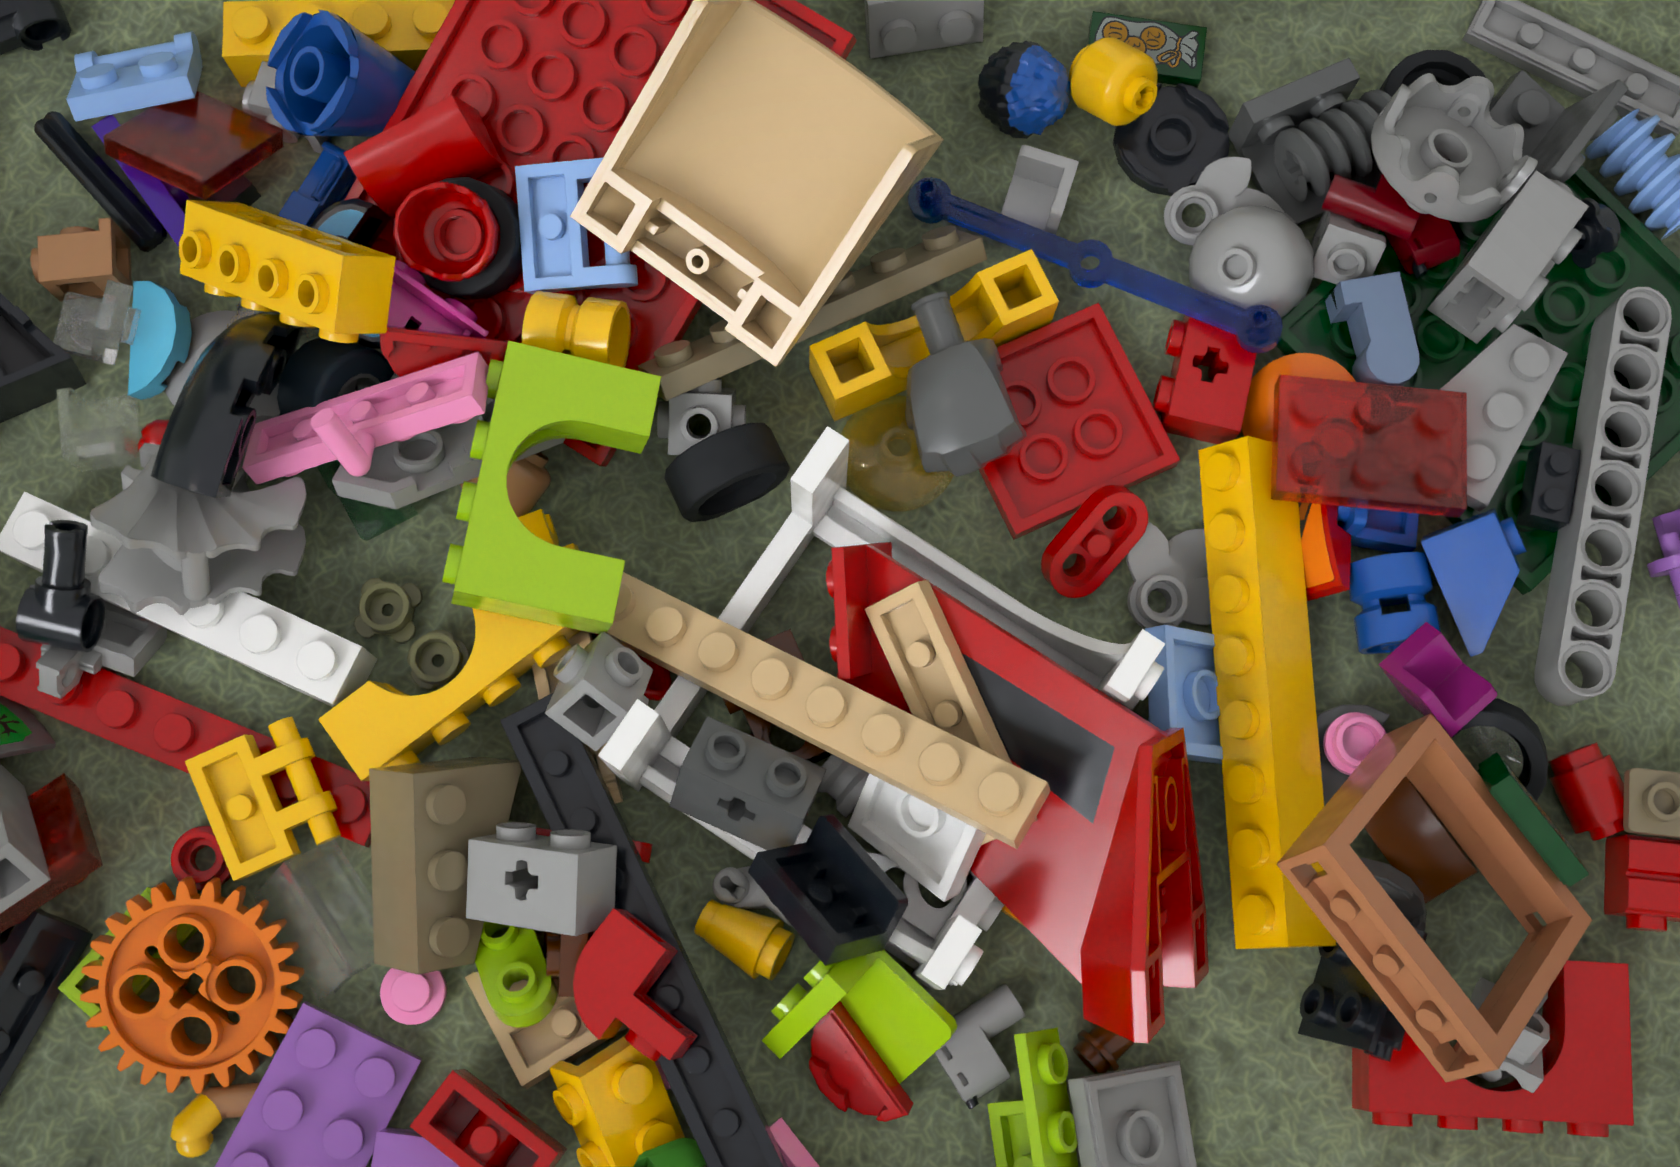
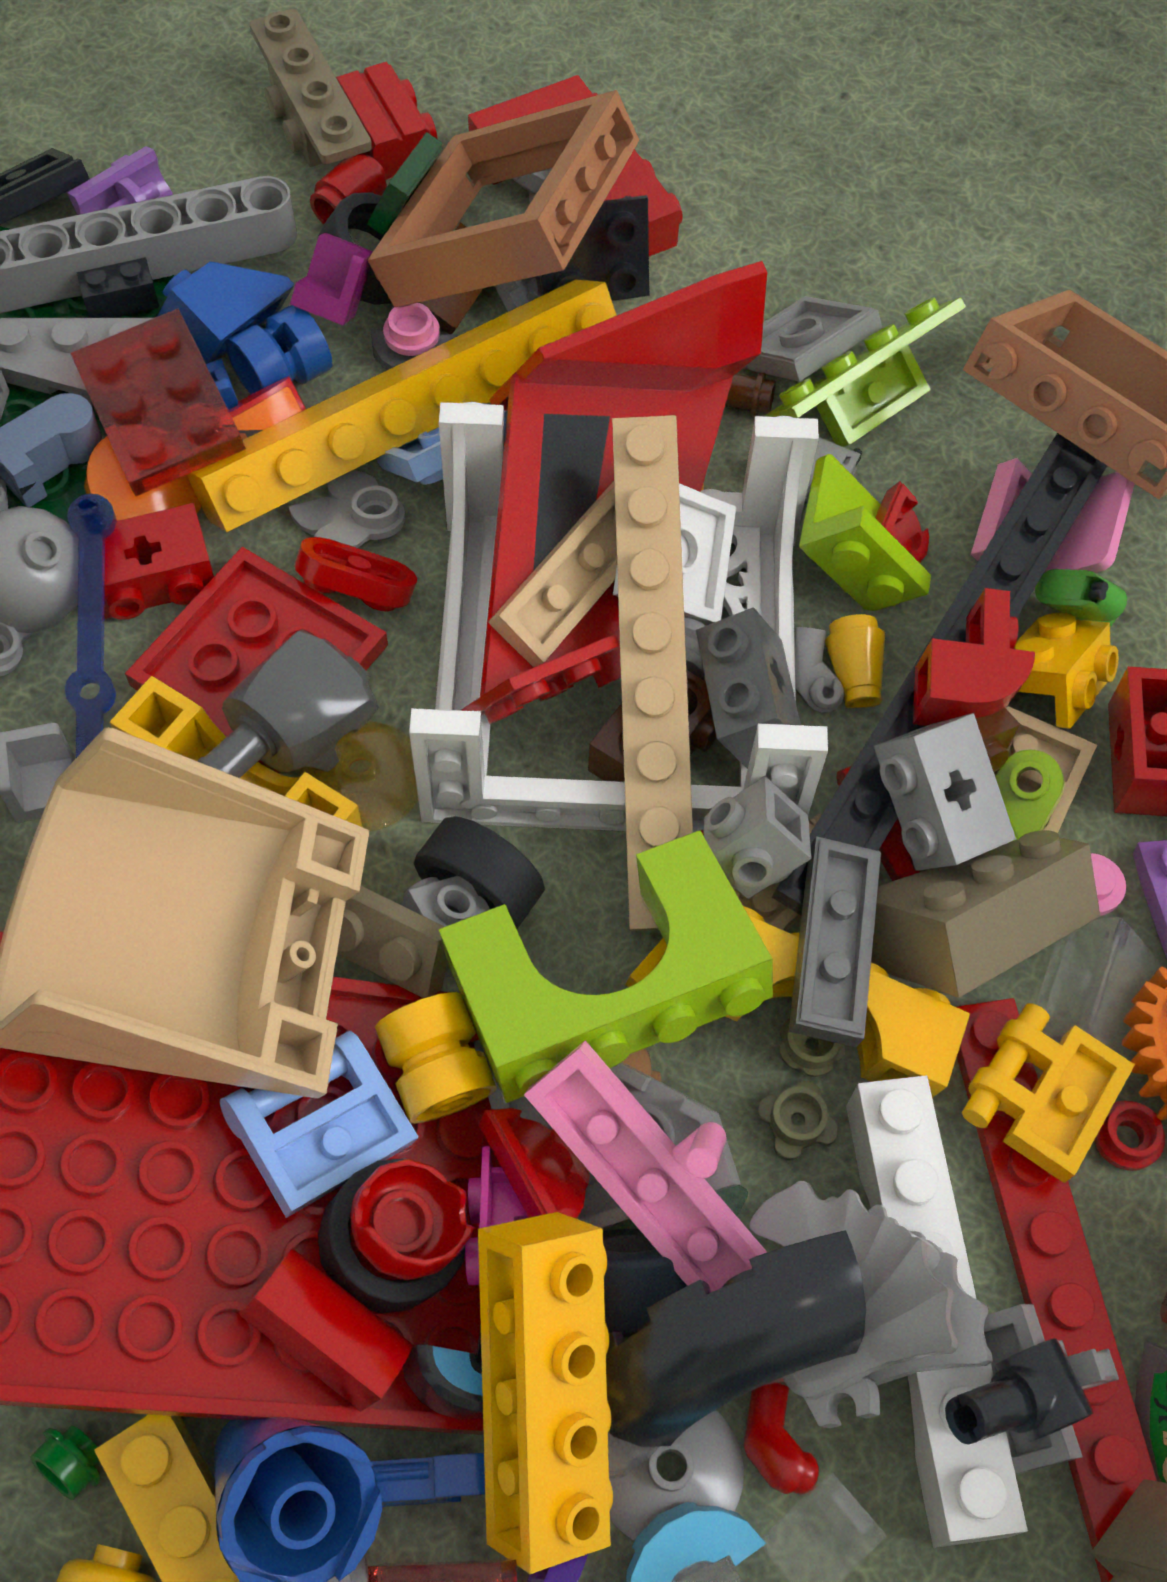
camera: 120 degrees left, 15 degrees down
(476, 700) = (835, 943): none -> flat silver tile
(831, 892) = (793, 567): black bracket -> none

